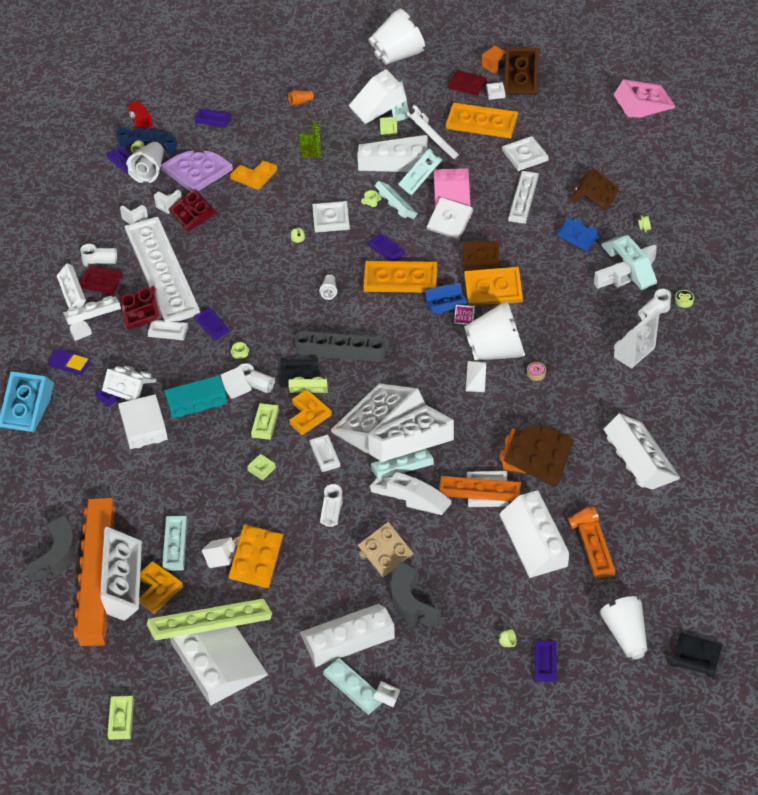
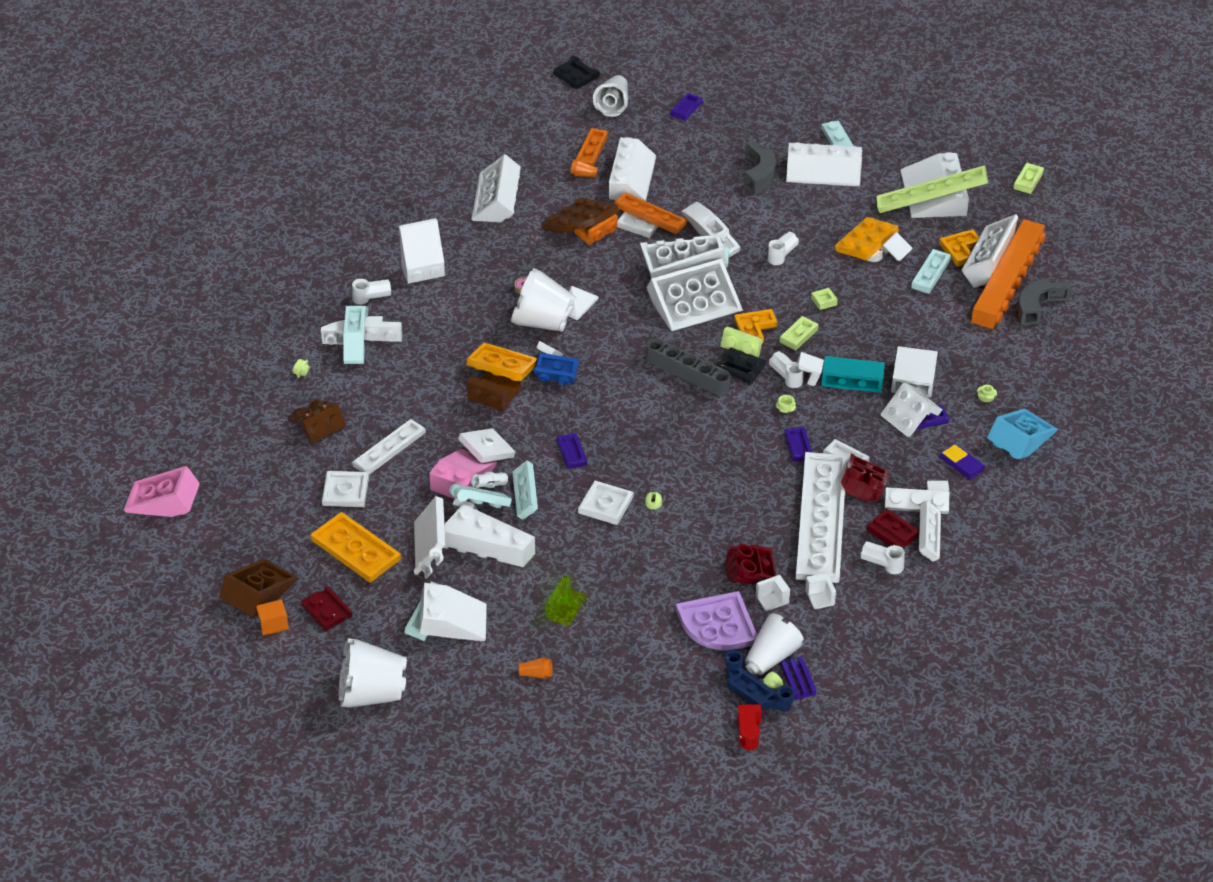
camera: 155 degrees left, 5 degrees down
(71, 433) = (986, 393): none -> yellowish green plate
(212, 118) = (658, 691): dark purple tile -> none
(254, 178) = (657, 588): light orange plate -> none
(324, 453) = (760, 293): white tile -> none
(328, 288) = (661, 426): white cone -> none
(371, 198) = (548, 507): yellowish green plate -> none
(384, 549) = (754, 207): tan hinge -> none
(386, 694) = (818, 122): white tile -> none
(388, 125) = (464, 581): yellowish green plate -> none
(399, 276) = (581, 411): light orange plate -> none
(424, 189) = (489, 479): none -> white pin
(495, 90) = (307, 577): white plate -> none
(507, 638) = (705, 124): yellowish green hinge -> none
(578, 235) = (373, 381): blue bracket -> none
(684, 298) = (336, 293): yellowish green tile -> none

